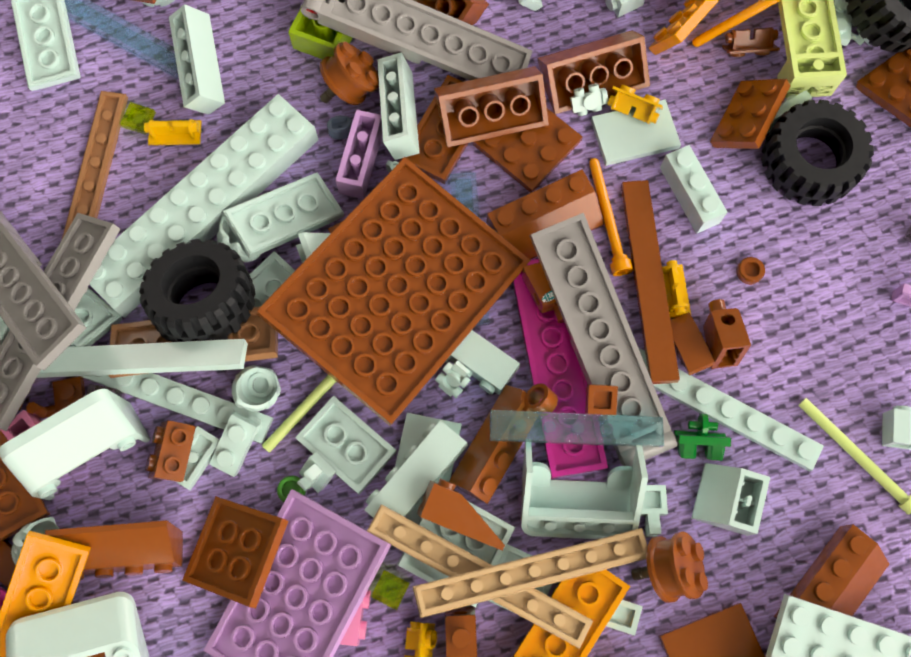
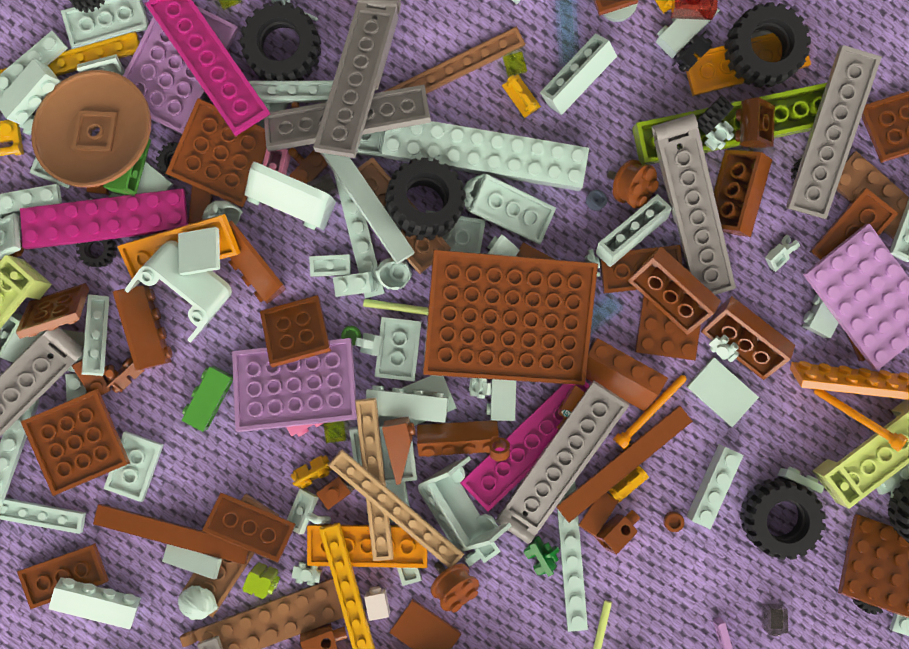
camera: 55 degrees right, 15 degrees up
(46, 594) = (199, 251): none -> light aqua tile
(171, 451) = (323, 250): dark orange bracket -> none
(359, 154) = (585, 228): lavender brick -> none
(576, 428) = (495, 482): clear light blue tile -> none
(601, 399) = (522, 486): dark orange plate -> none
(645, 107) = (743, 388): yellow hinge -> none
(693, 189) = (704, 454): light aqua brick -> none
(731, 498) = (517, 594): light aqua slope -> none
(741, 43) = (834, 422): dark orange hinge -> none
(744, 208) = (714, 486): none -> light aqua brick
(750, 114) = (783, 459): dark orange plate -> none

